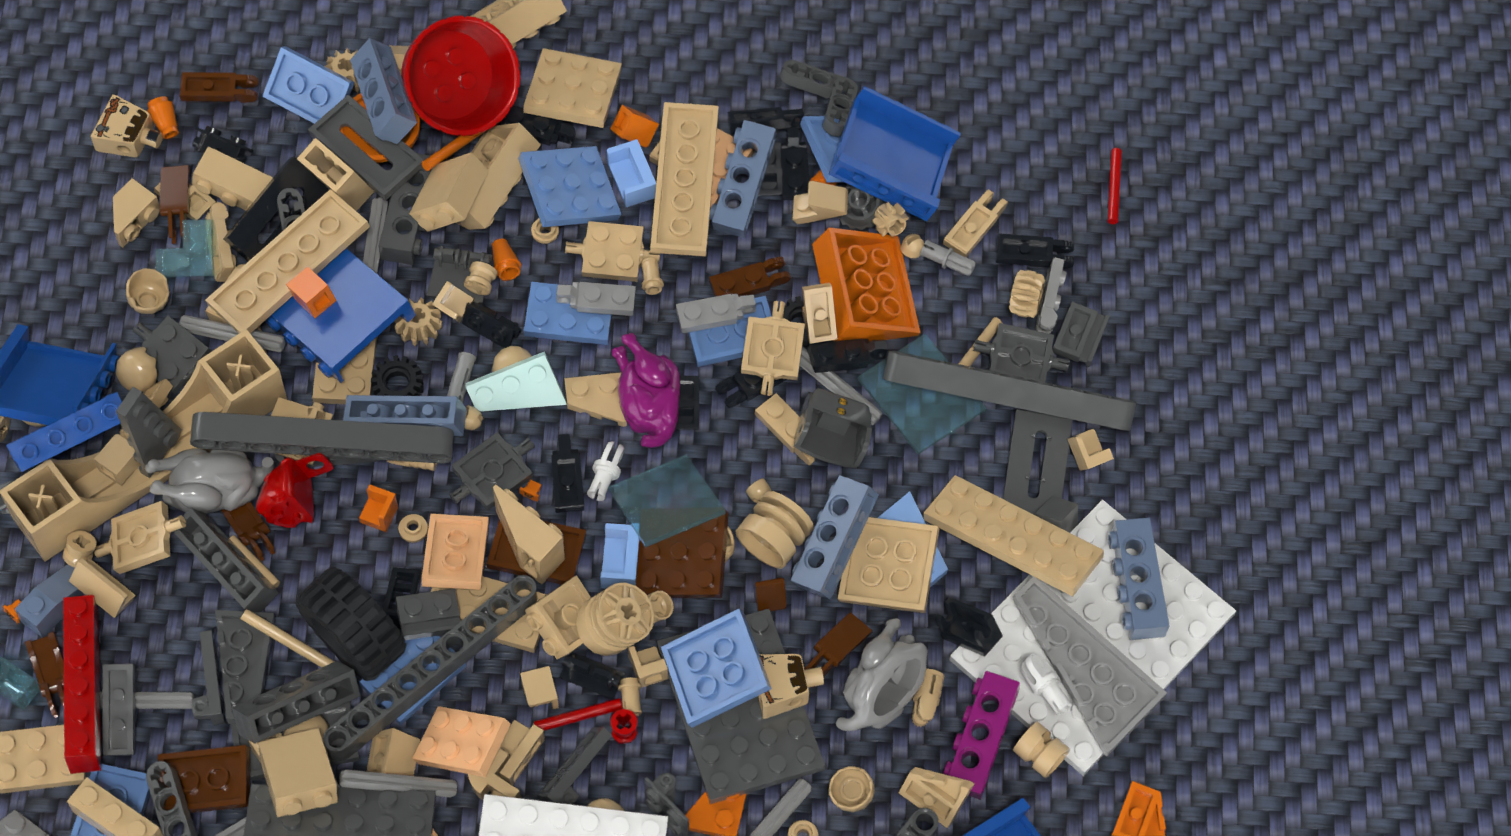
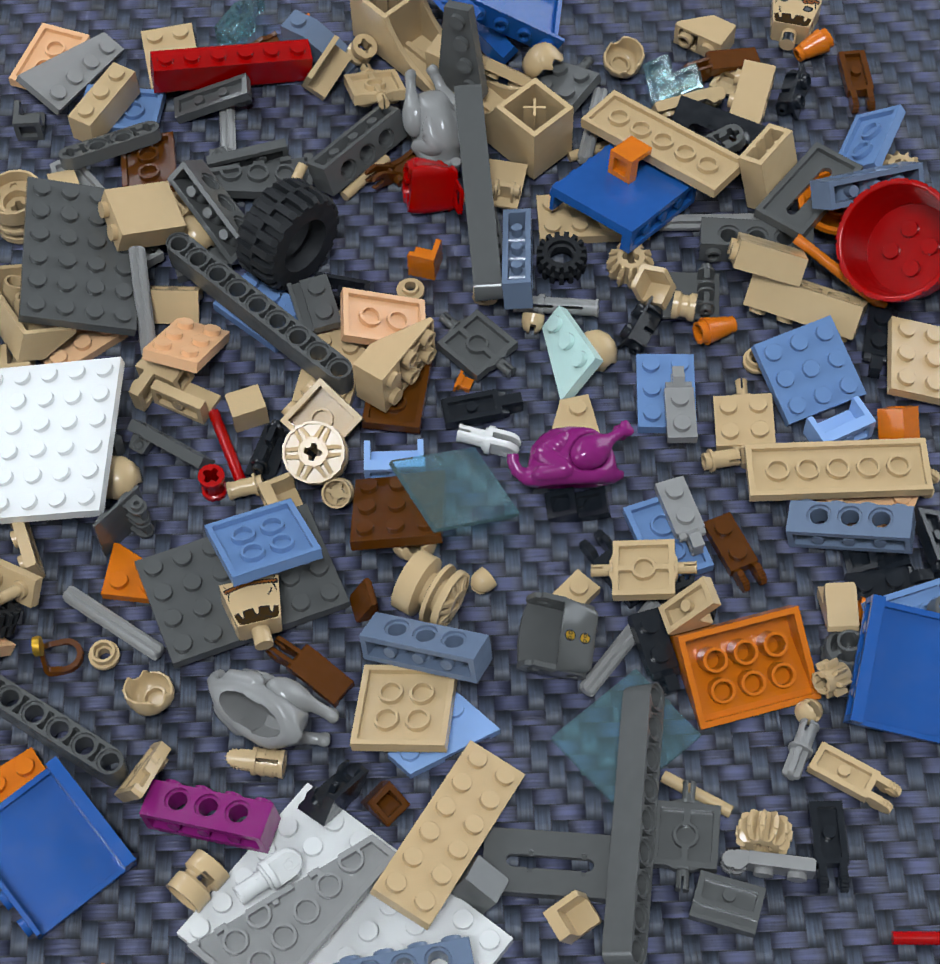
camera: 90 degrees right, 5 degrees down
(971, 592) = (385, 802): none -> reddish brown slope

